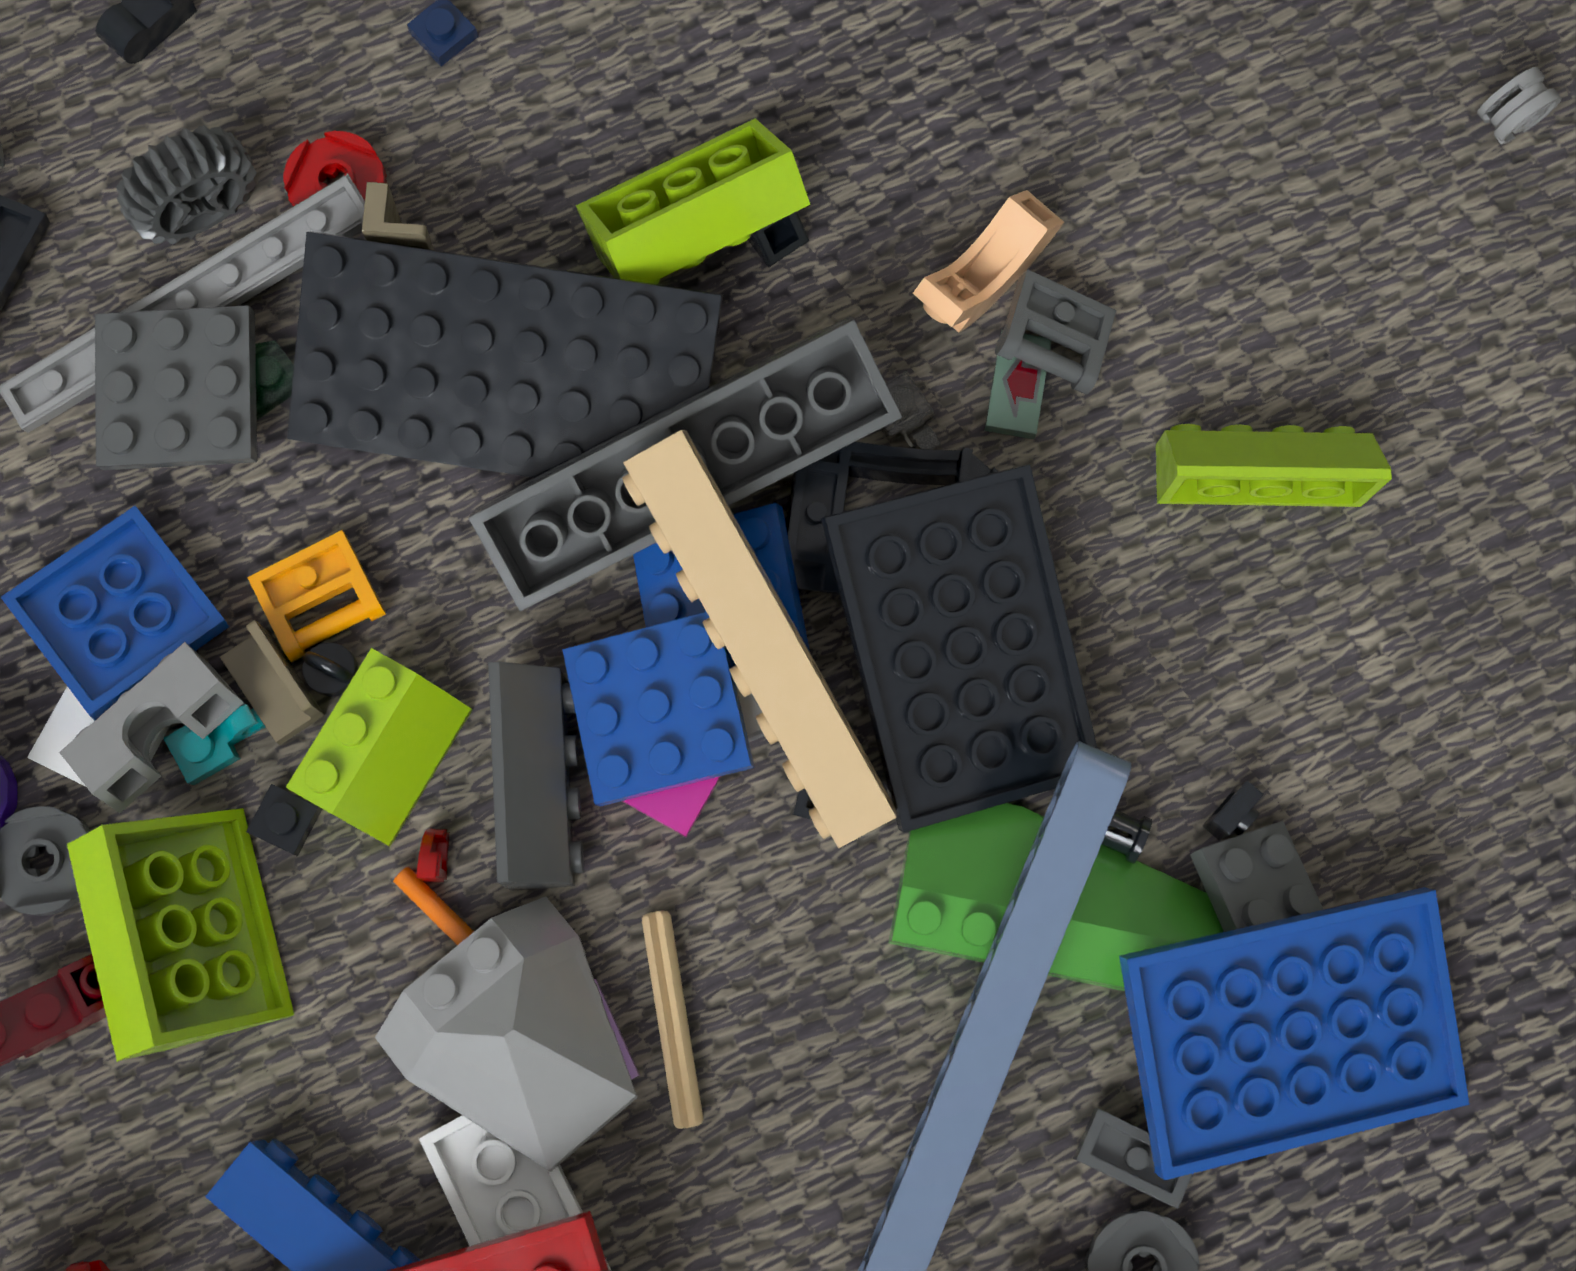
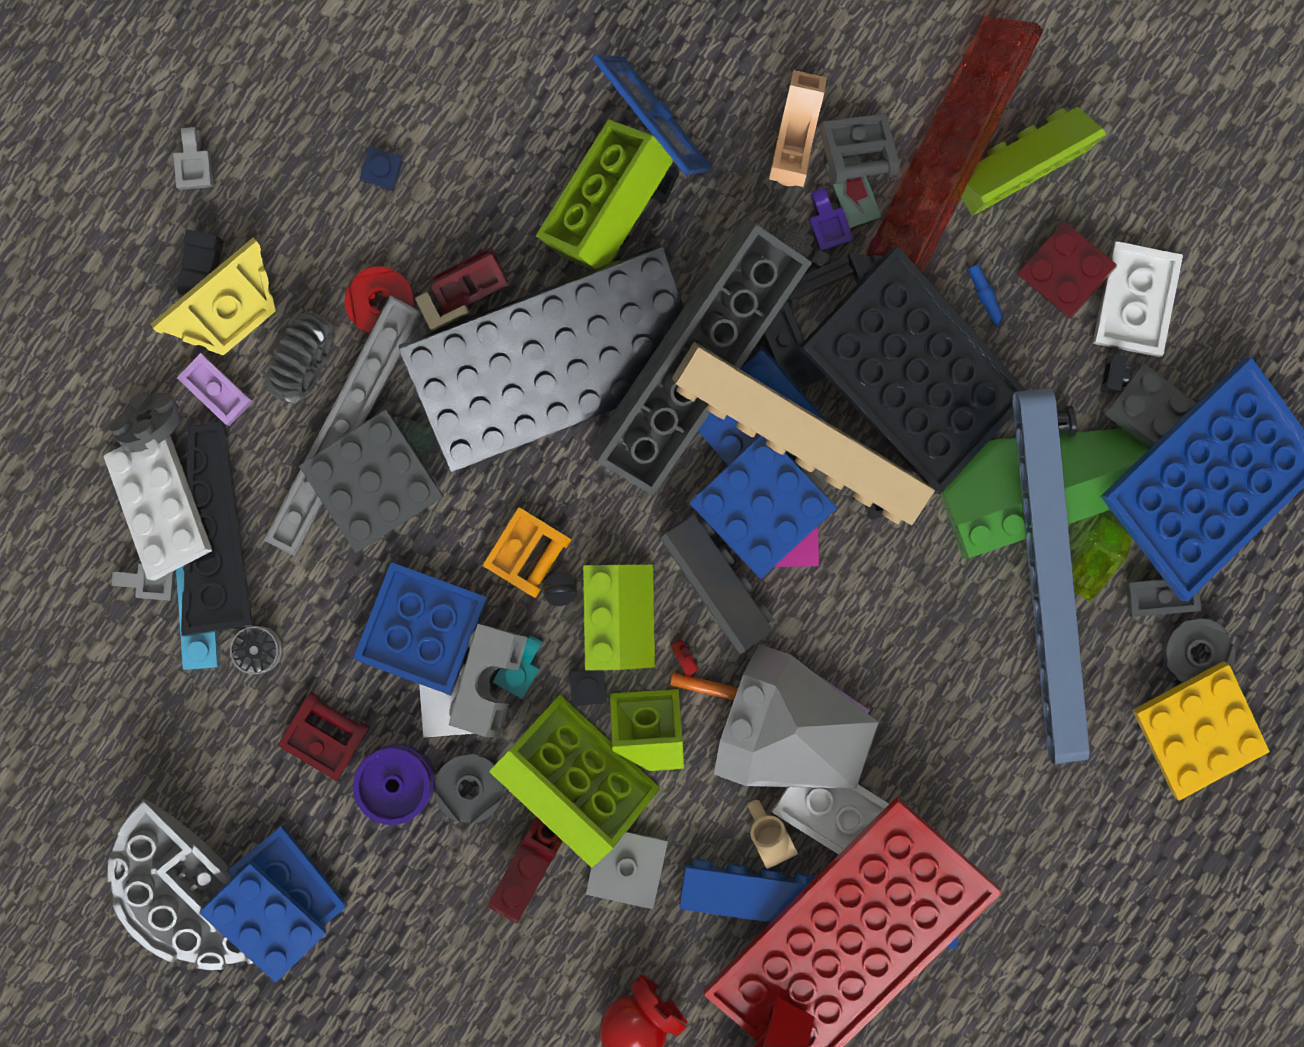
camera: 30 degrees left, 10 degrees up
(63, 171) = (214, 389): none -> lavender plate
(138, 72) = (223, 304): none -> light yellow wing
(179, 1102) = (630, 871): none -> light grey plate
(271, 684) = (532, 617): dark tan panel -> none
(324, 922) = (648, 728): none -> lime slope
(392, 1174) = (770, 836): none -> tan piece
(460, 212) = (469, 280): none -> dark red brick
(672, 1020) = (869, 669): tan axle -> none
(813, 139) = (653, 114): none -> blue door
(963, 407) = (830, 225): none -> dark purple plate
(1072, 1050) = (1100, 558): none -> clear neon green slope
(1119, 611) = (986, 294): none -> blue piece
(1190, 387) = (956, 139): none -> clear red plate
(1244, 638) = (1067, 270): none -> dark red plate
(1320, 731) = (1138, 299): none -> white plate

